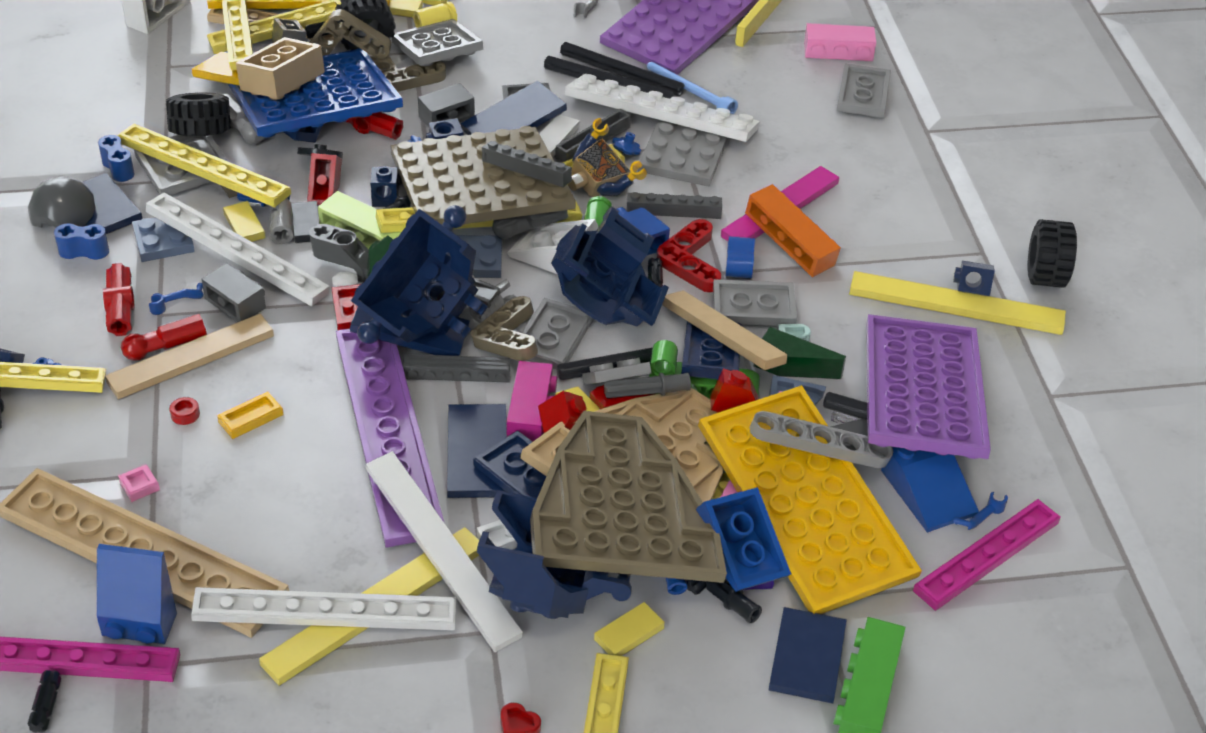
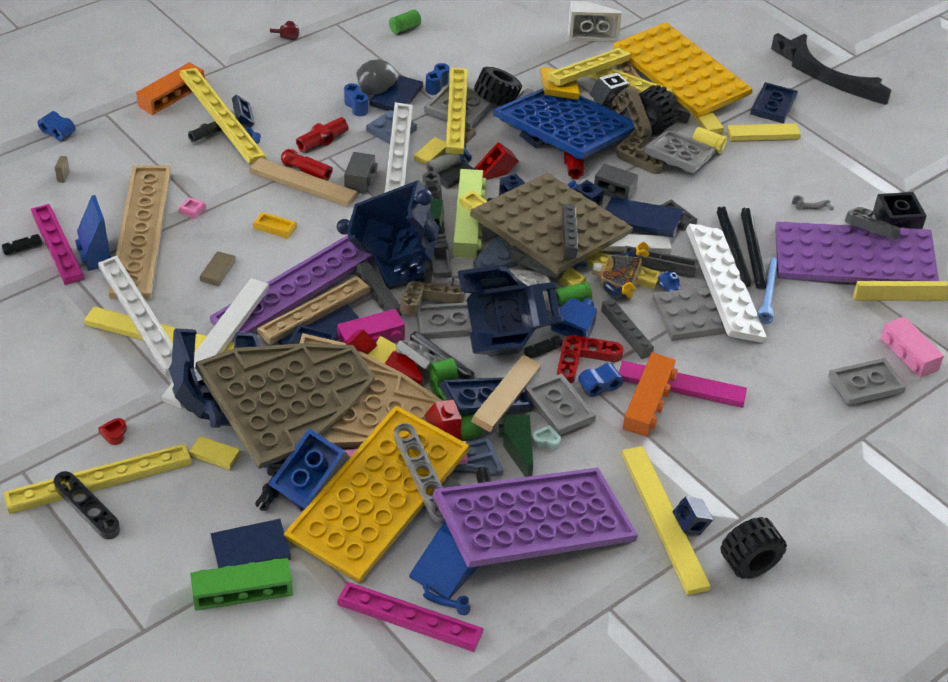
camera: 60 degrees right, 0 degrees up
(158, 300) = (336, 151): blue piece -> none
(184, 410) = (258, 199): red tile -> none
(280, 68) = (562, 93): tan brick -> none
(287, 501) = (217, 268): none -> dark tan tile
(318, 149) = (516, 150): black piece -> none
(453, 438) = (313, 310): none -> tan tile
(647, 385) = (421, 378): dark grey axle -> none

